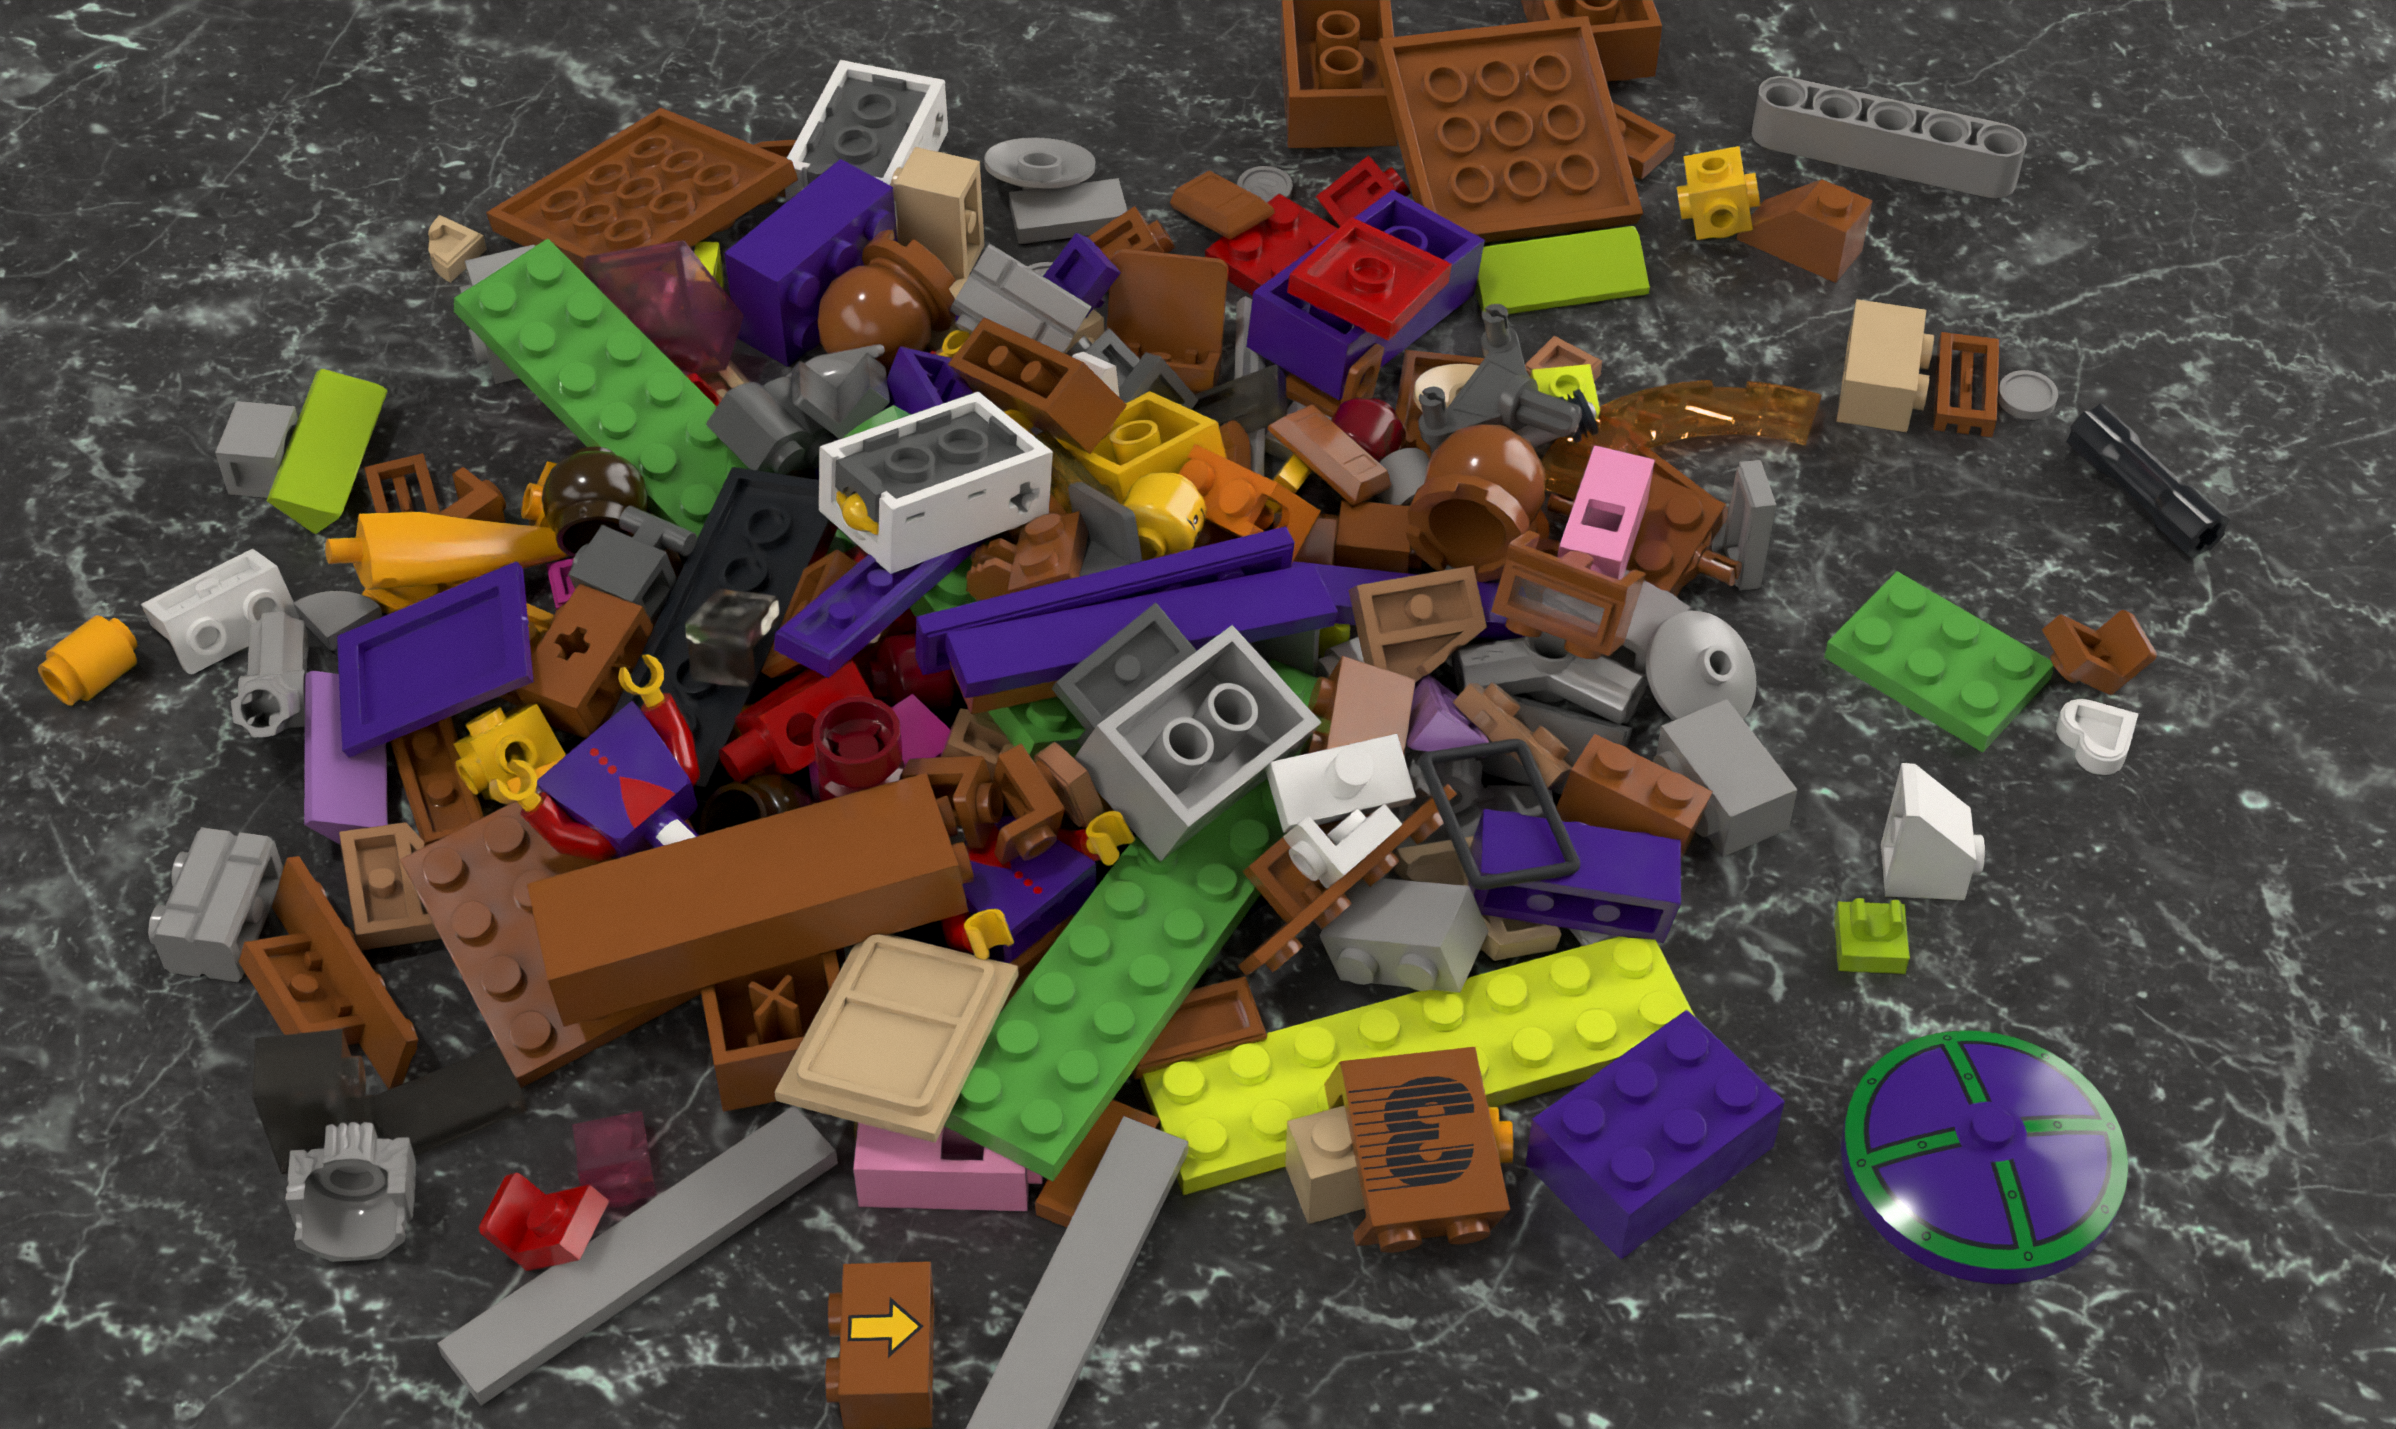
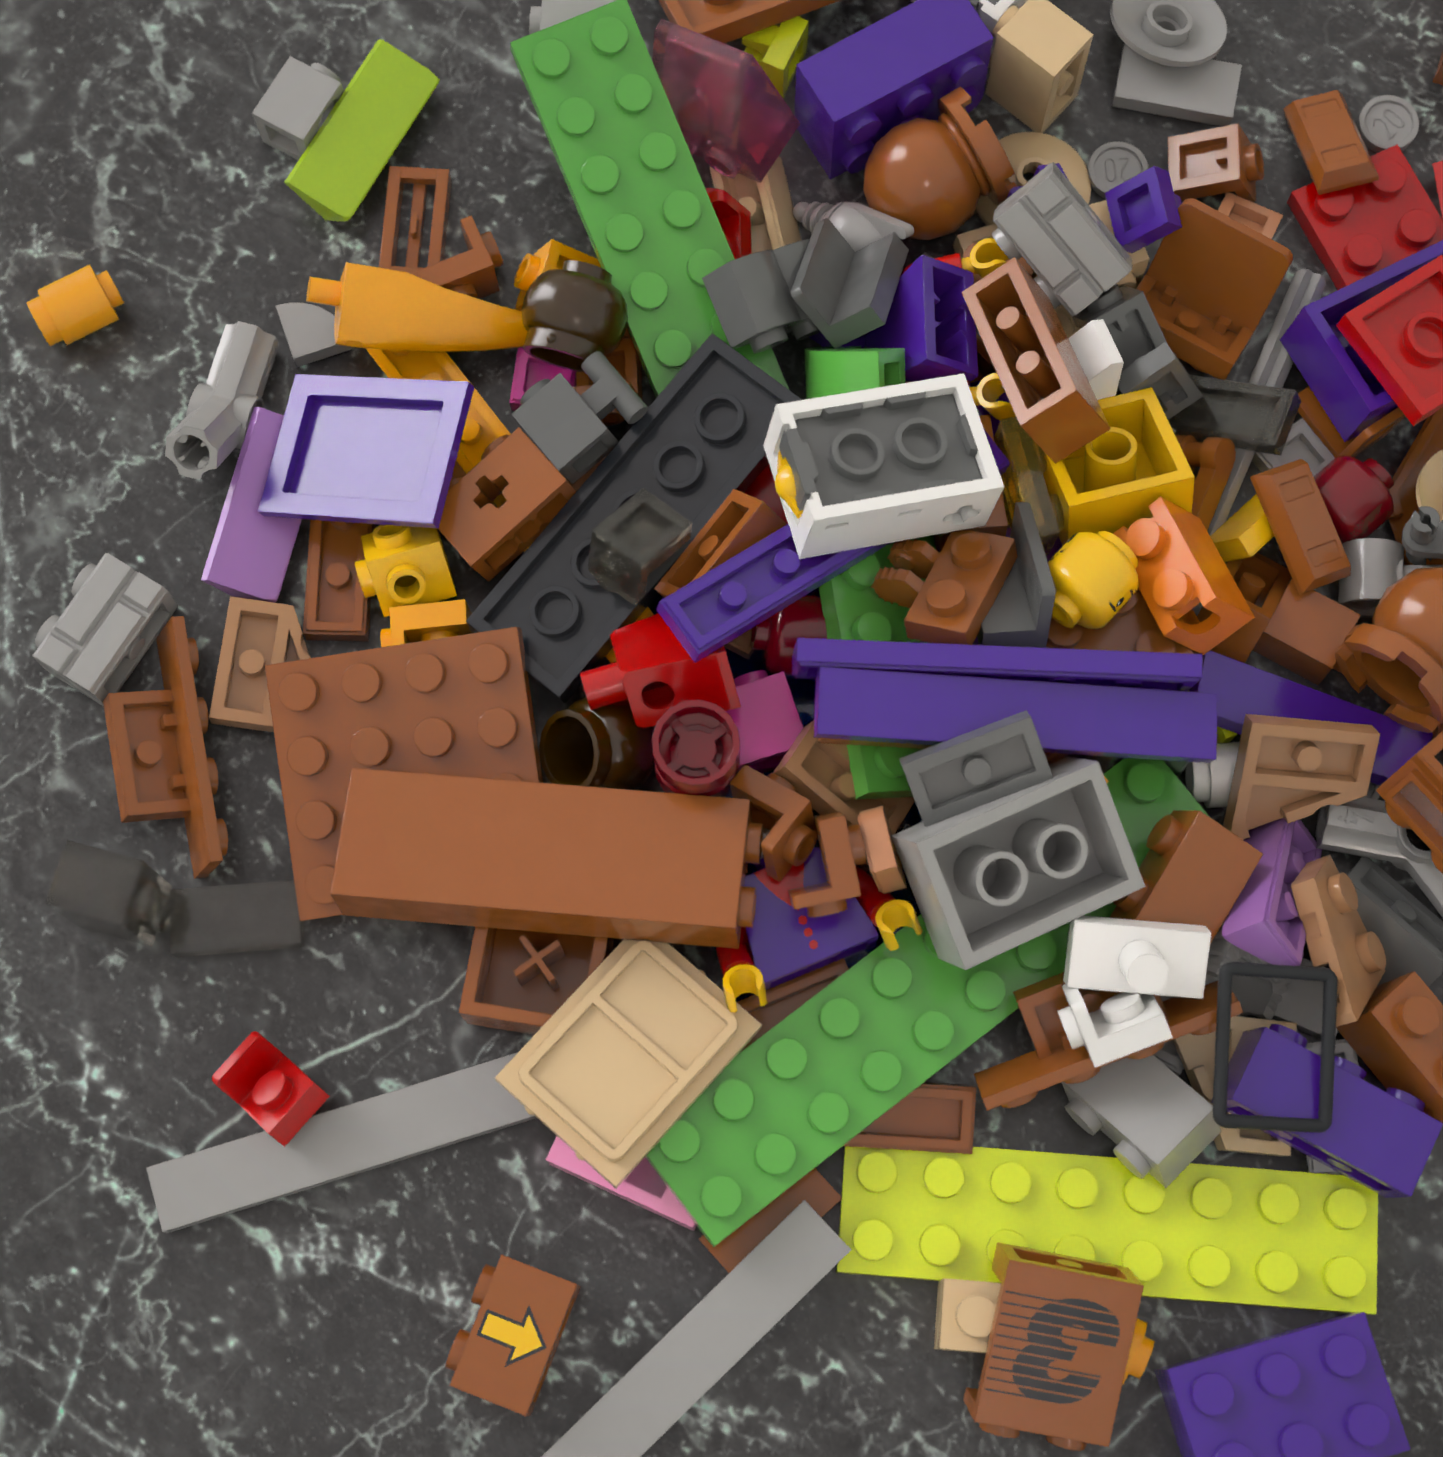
camera: 25 degrees right, 25 degrees up
(214, 610) = (208, 285): white bracket -> none
(352, 1194) = (119, 994): light grey hair -> none
(615, 1158) = (356, 1038): clear pink bracket -> none
(620, 786) = (470, 691): torso -> none

